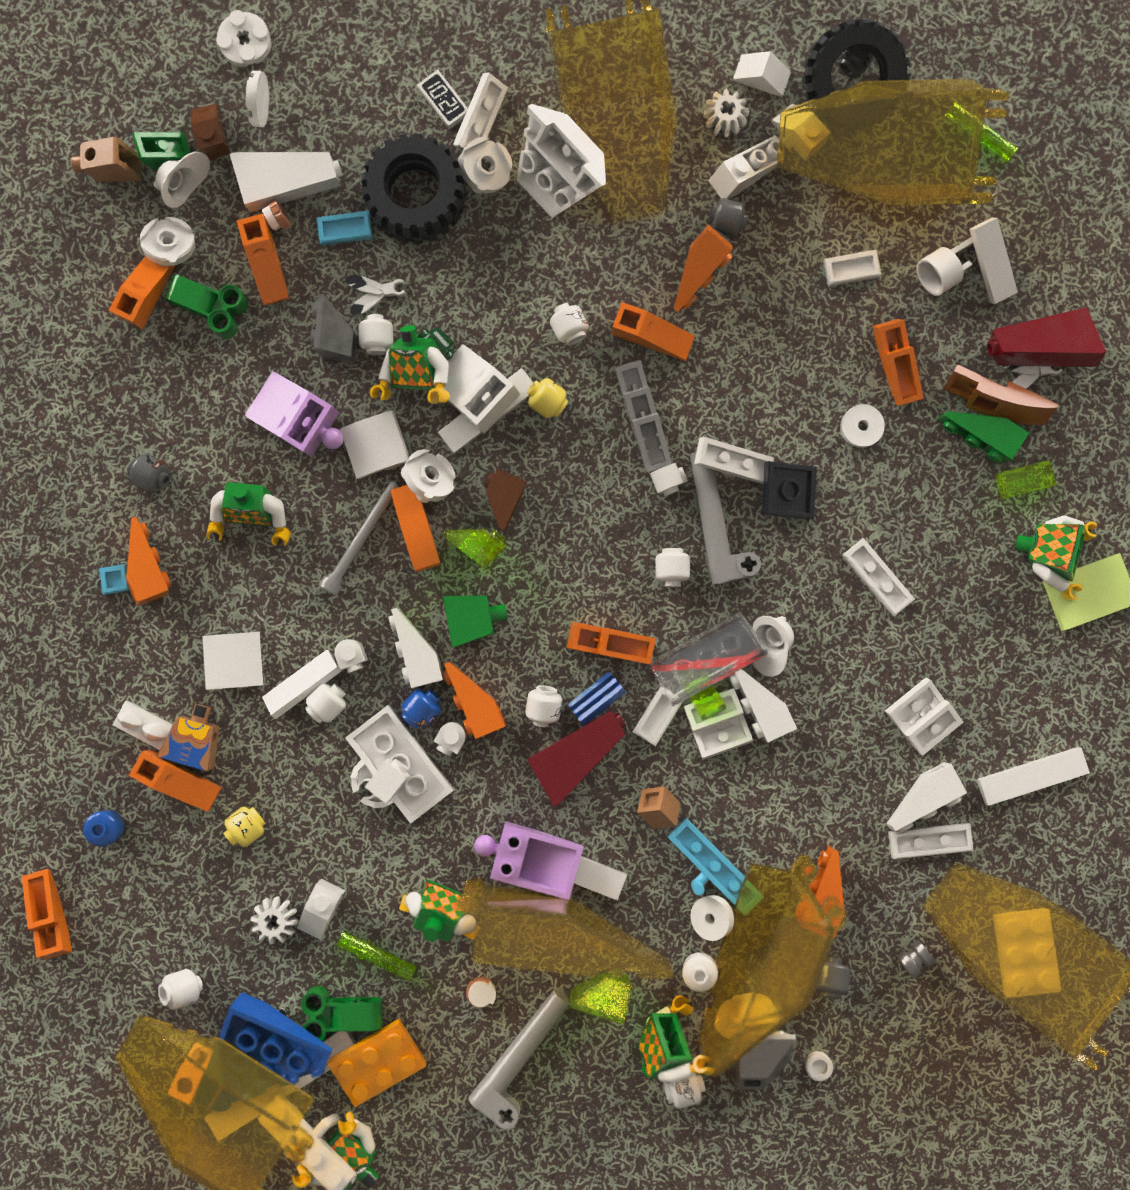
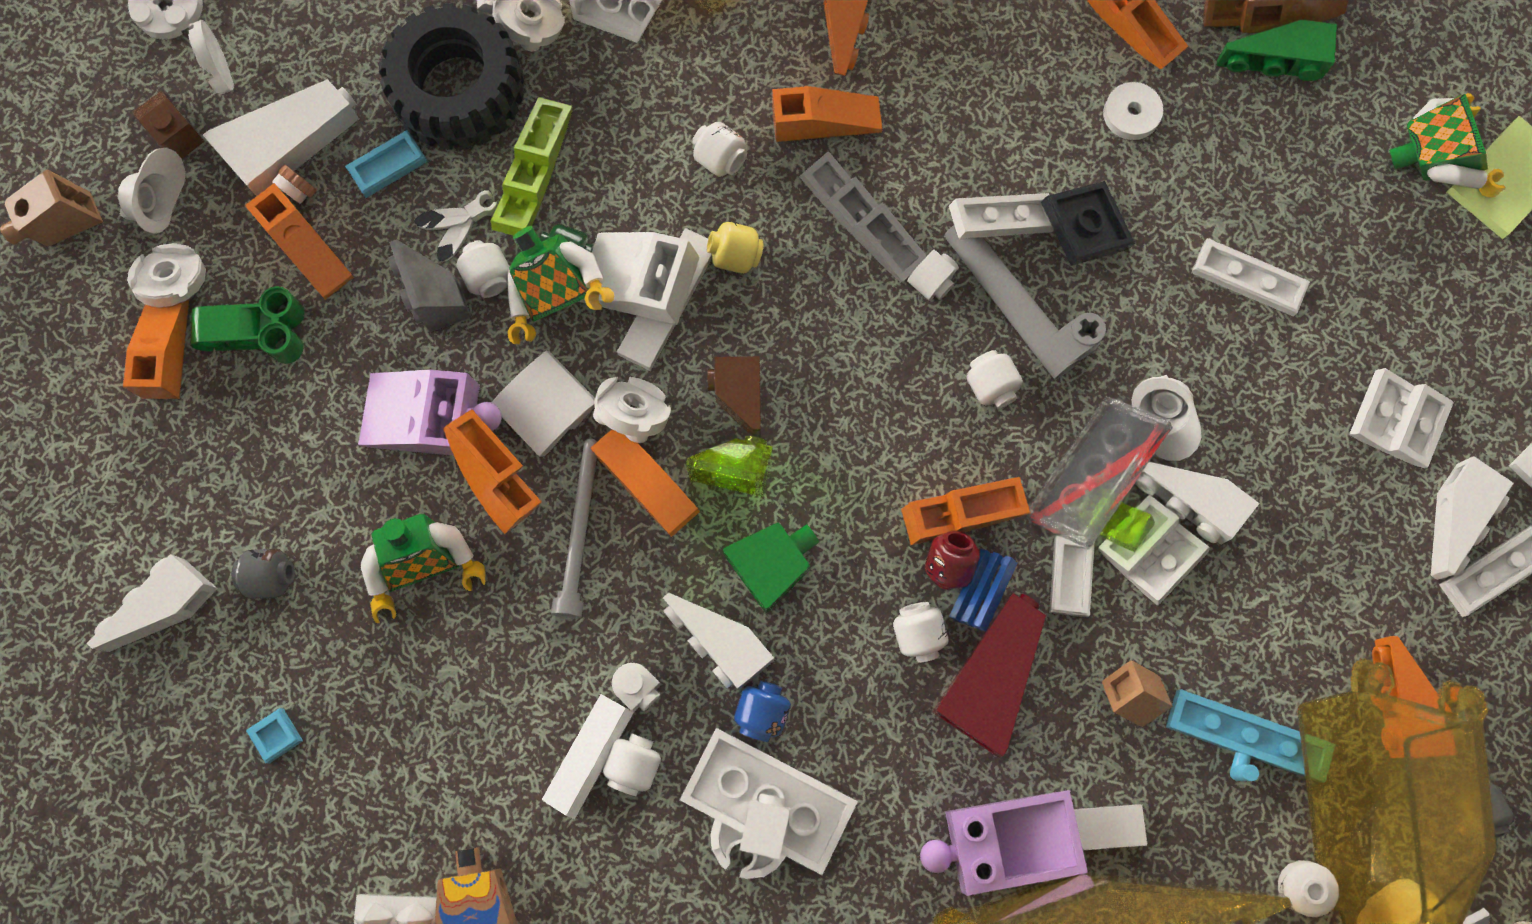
camera: 20 degrees left, 10 degrees down
(82, 461) = (164, 599): none -> white slope
(143, 574) = (310, 707): orange slope -> none
(160, 147) = (108, 167): green slope -> none
(232, 660) = (480, 769): white slope -> none
(319, 476) = (490, 471): none -> orange slope
(440, 276) = (532, 166): none -> lime slope
(451, 738) = (820, 732): white plate -> none
(479, 707) = (835, 671): orange slope -> none
(585, 671) = (952, 560): none -> dark red head
(722, 914) = (1291, 790): white piece -> none
(1025, 479) = (1359, 83): clear neon green slope -> none

